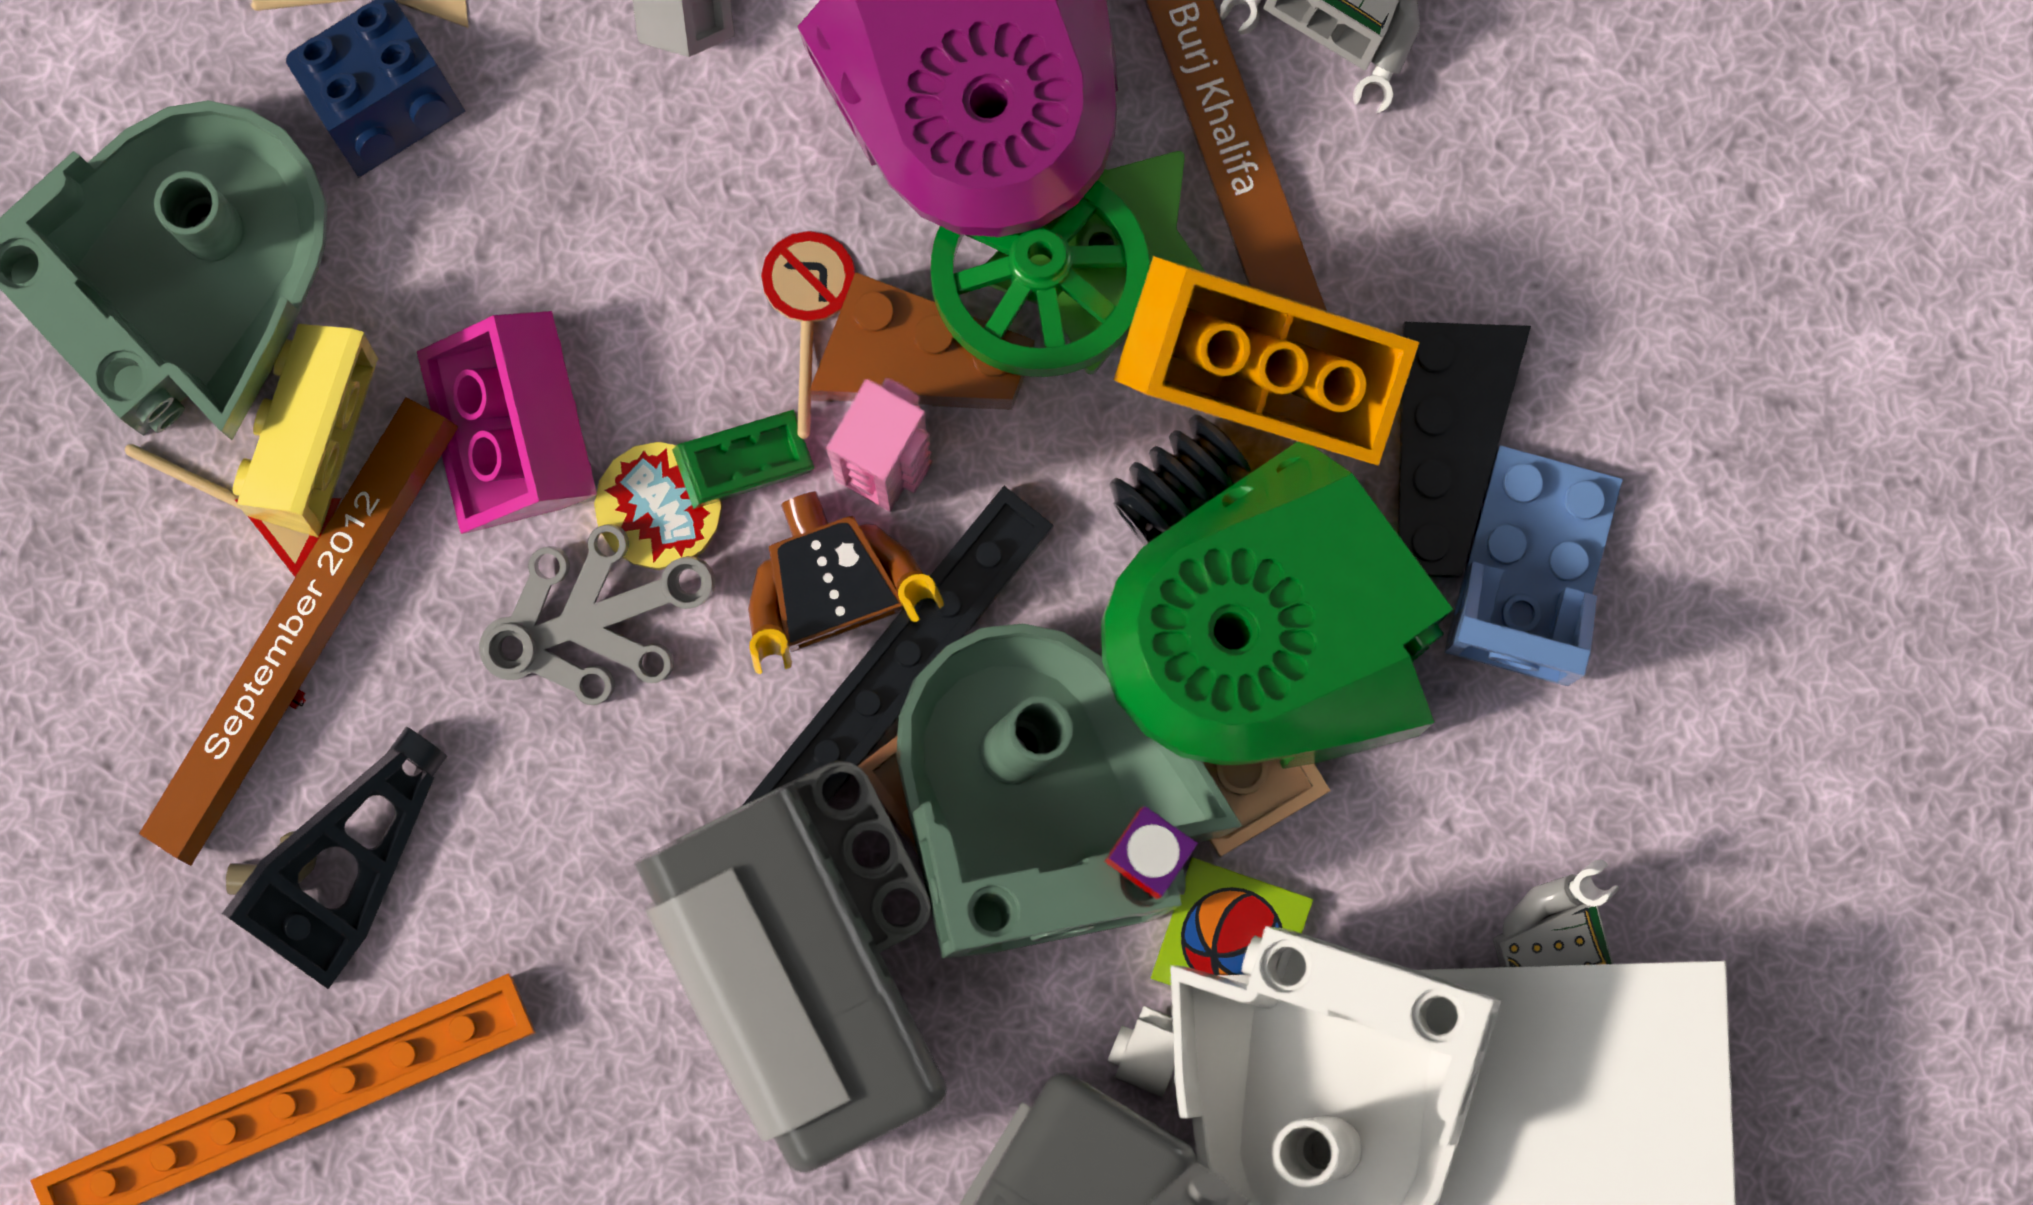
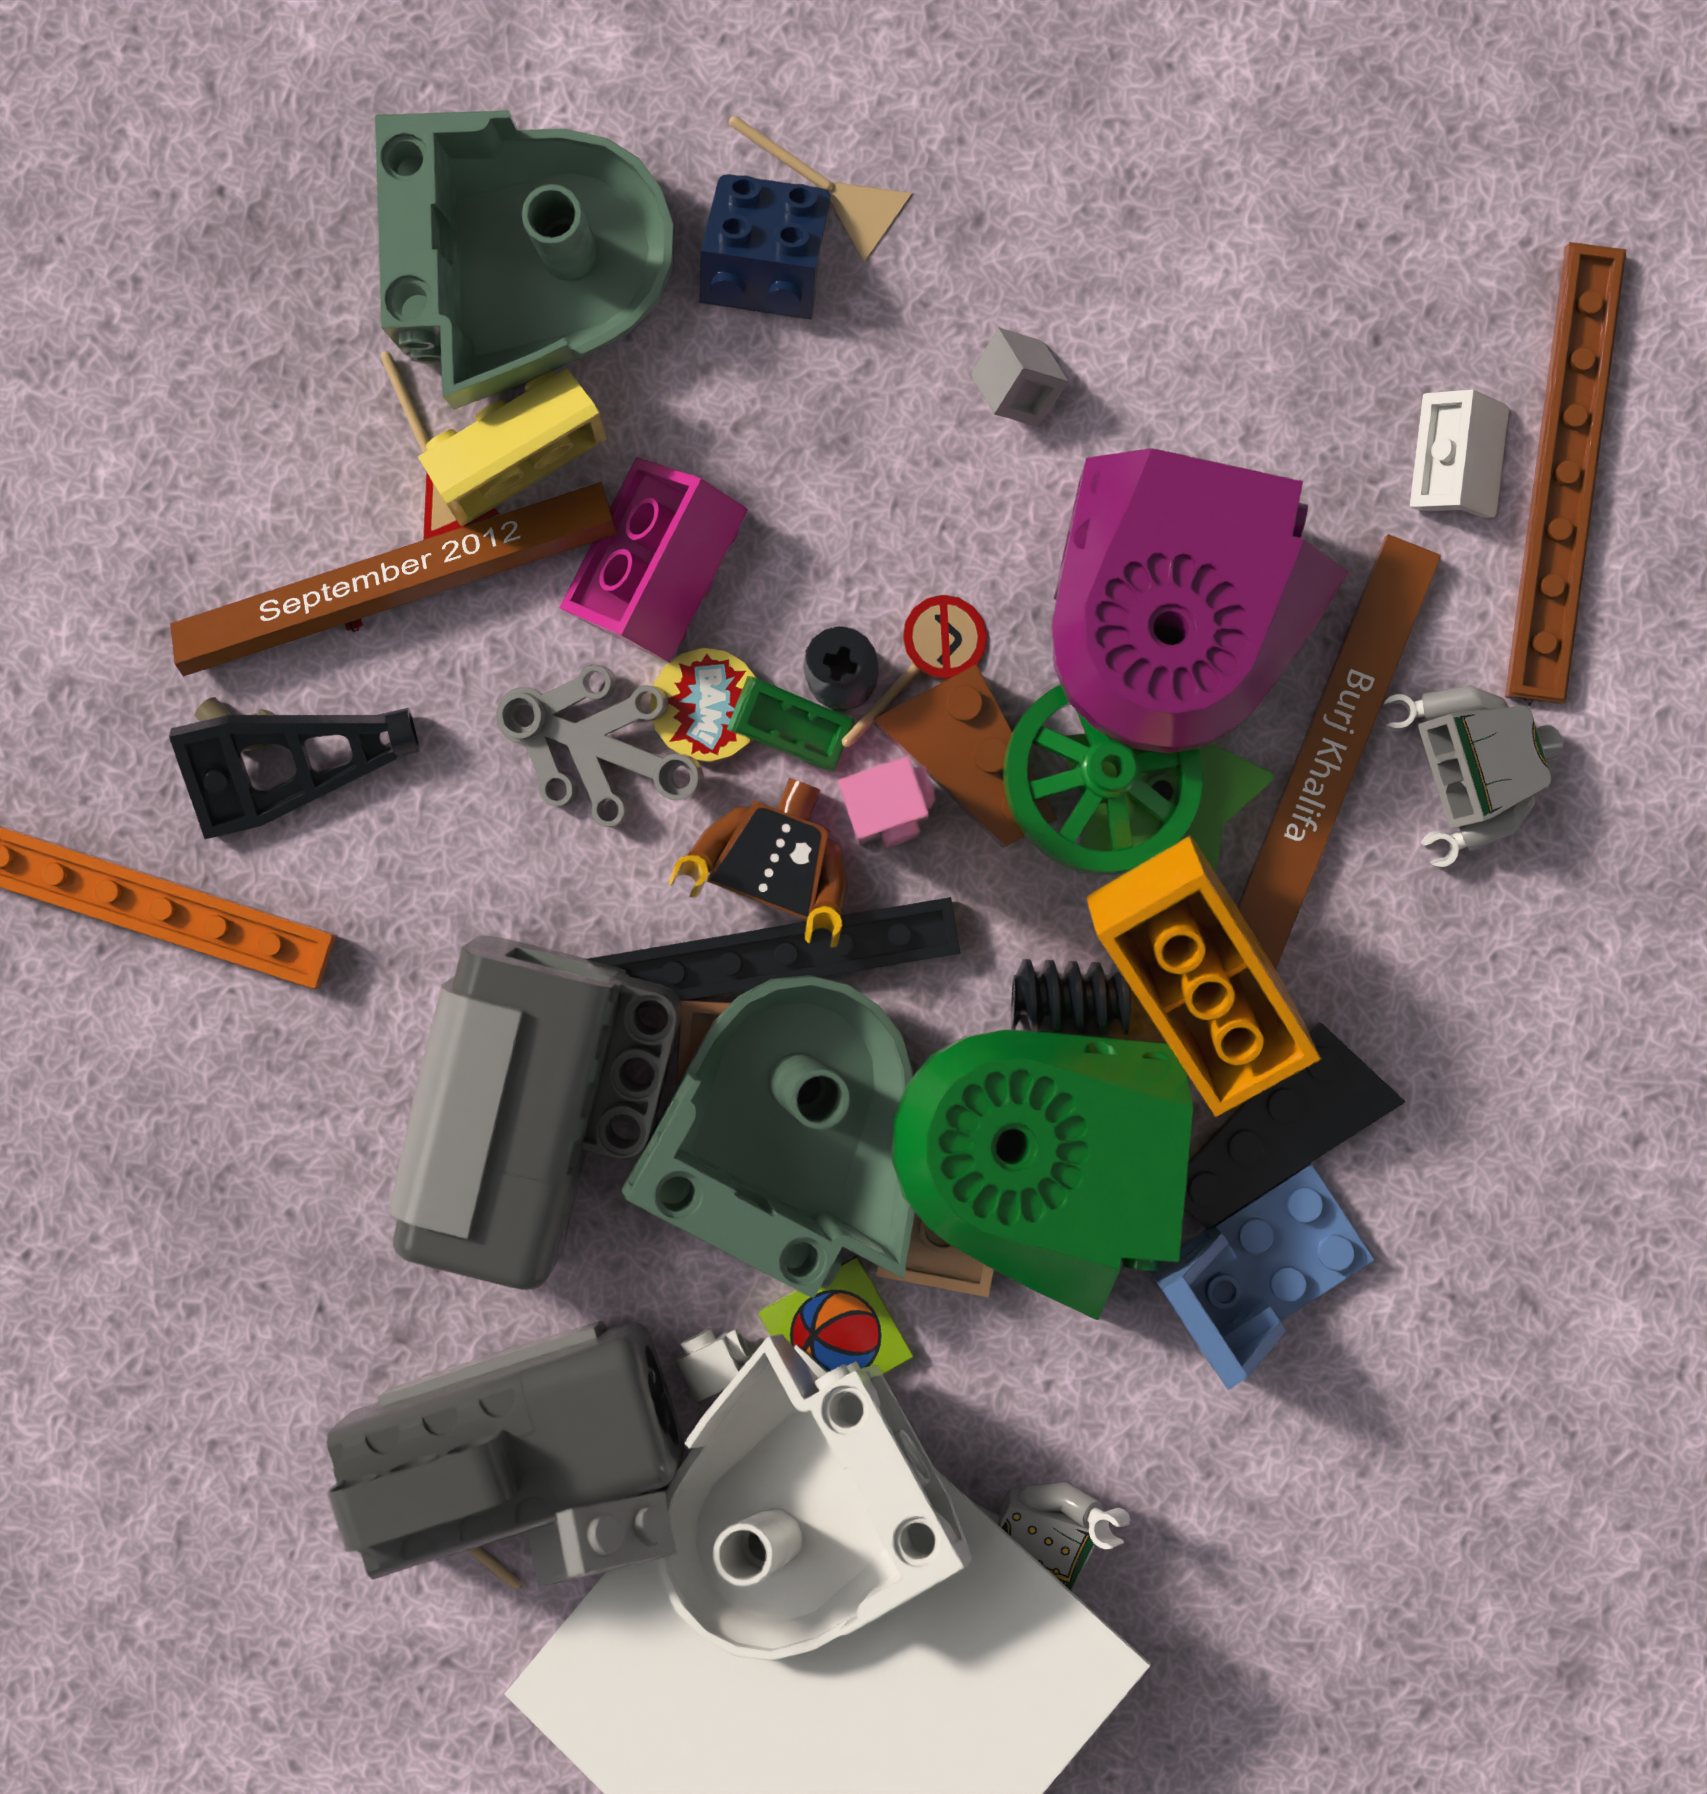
camera: 45 degrees right, 5 degrees up
(739, 347) = (830, 648): none -> black piece
(1150, 852) = (823, 1247): tile -> none

